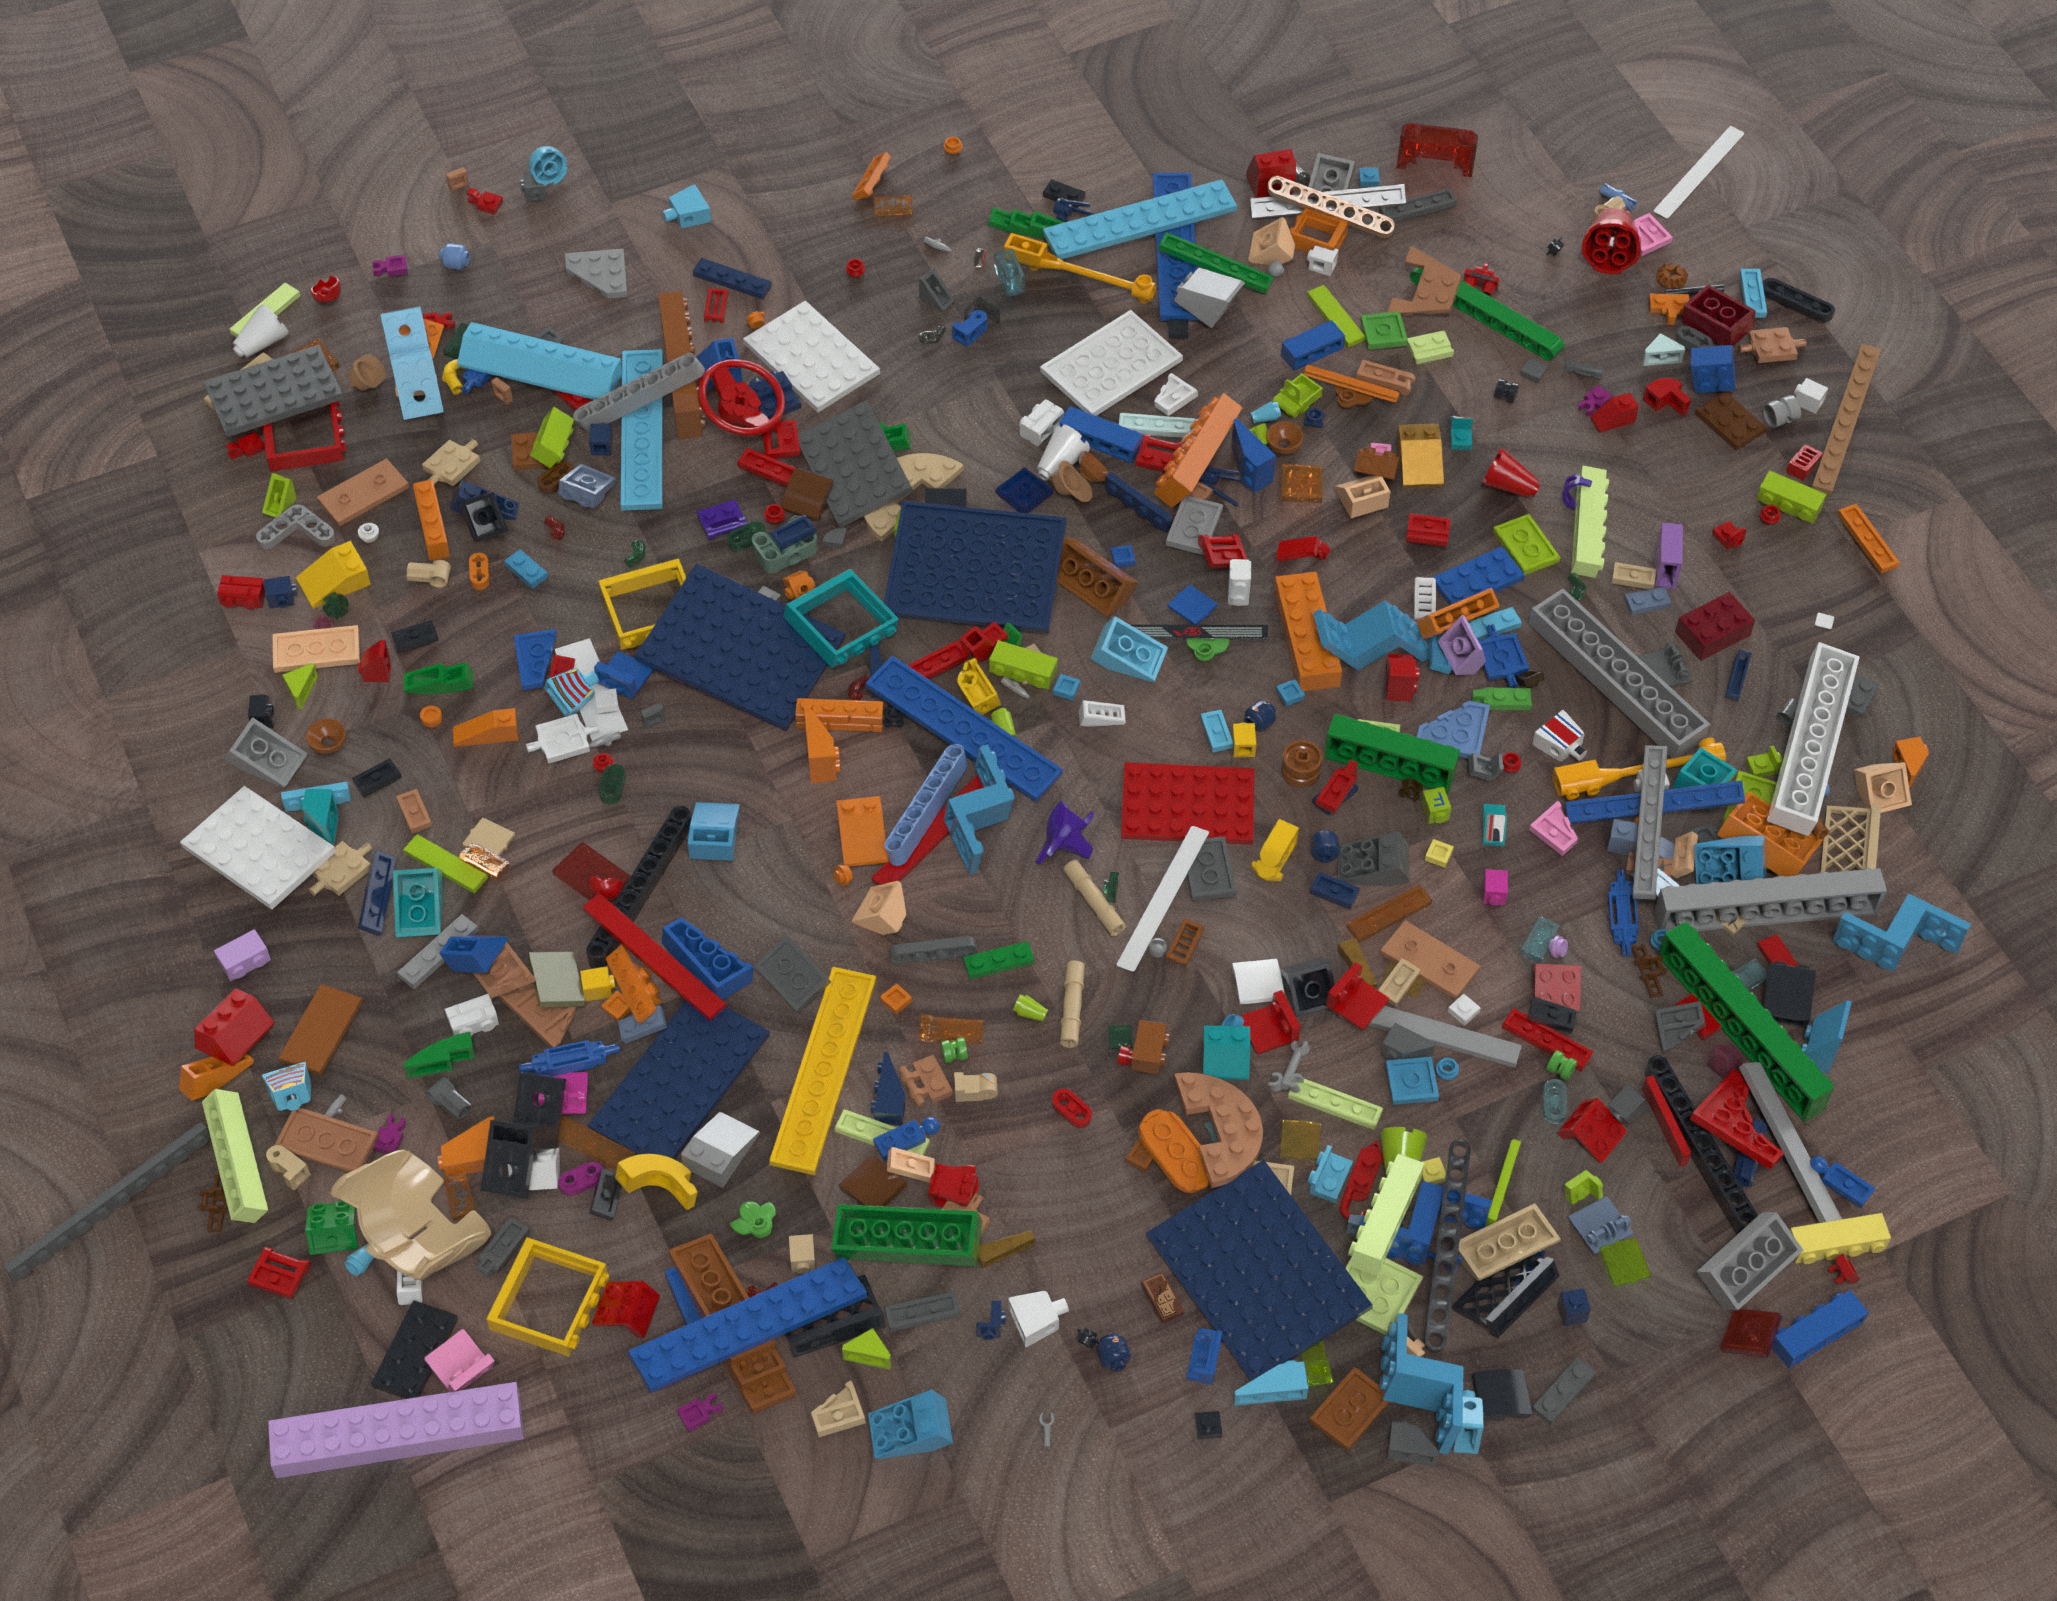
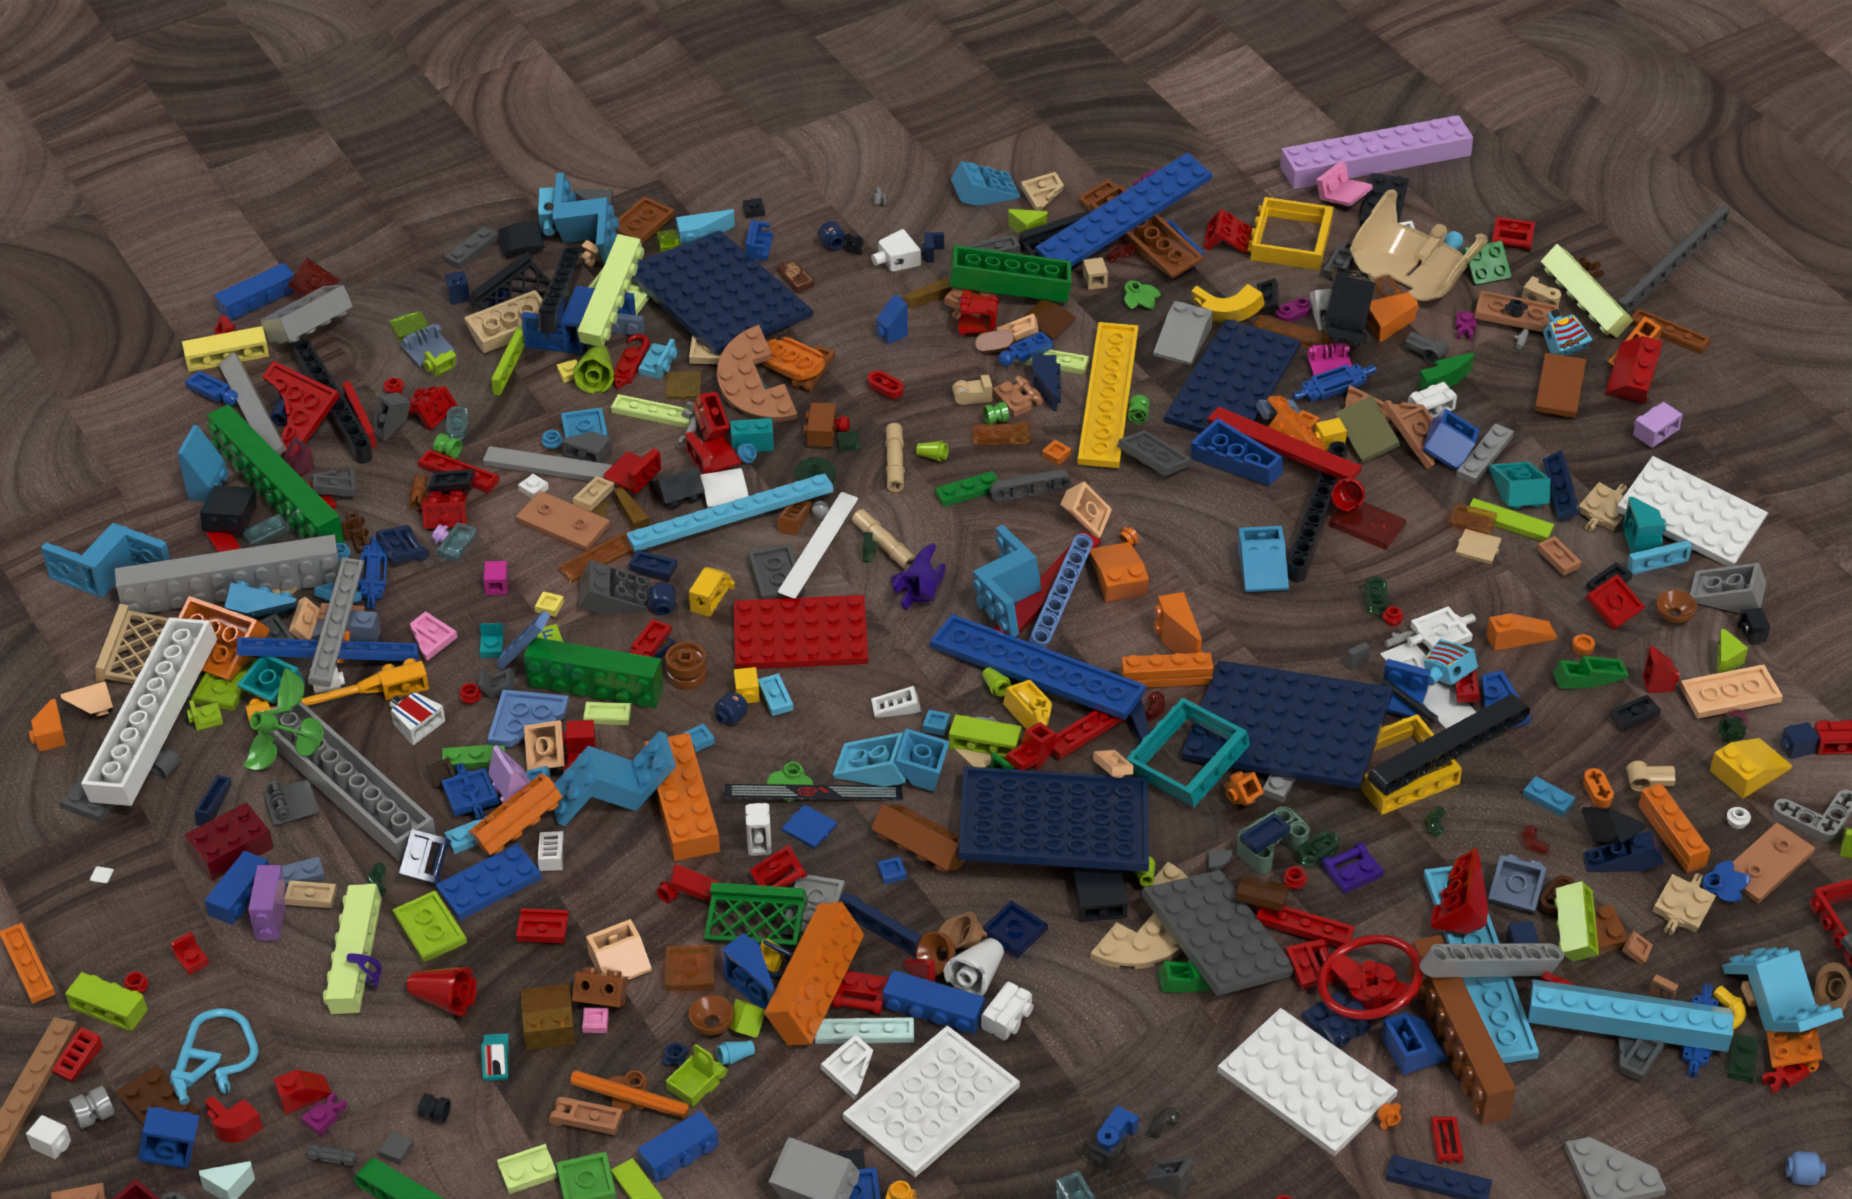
camera: 175 degrees right, 10 degrees down
(161, 1101) = (1674, 332): none -> dark orange tile
(329, 1135) = (1516, 308): none -> black plate
(382, 749) = (1615, 602): none -> red tile
(409, 472) = (1728, 880): none -> blue plate
(507, 427) = (1637, 948): none -> nougat tile
(602, 593) = (1448, 744): none -> black beam
(618, 658) = (1411, 702): none -> black bar
(641, 462) = (1464, 899): none -> red wedge
(796, 1037) = (1138, 409): none -> bright green wheel
(910, 623) = (1113, 763): none -> light nougat plate
(938, 1152) = (994, 341): none -> tile
(1054, 1189) = (893, 320): none -> blue slope
(1084, 635) = (921, 758): none -> dark azure slope
(1106, 455) = (921, 968): none -> red tile
(1159, 1005) = (815, 466): none -> clear green plate
(1233, 485) = (771, 957): none -> yellow plate
(1245, 524) = (762, 897): none -> green fence
(1252, 940) = (729, 512): none -> medium azure plate
(1271, 1057) = (711, 416): none -> red brick
(1434, 688) = (544, 745): none -> light nougat slope
(1461, 773) = (523, 639): none -> medium blue tile
(1541, 586) = (417, 854): none -> plate
(1588, 1009) = (417, 491): none -> dark orange pin
(1602, 933) = (396, 546): none -> dark blue plate
(1633, 1172) = (393, 385): none -> red plate
(1696, 691) = (310, 736): none -> bright green plant
(1698, 583) = (234, 889): none -> blue brick
(1713, 422) = (181, 1080): none -> medium azure piece

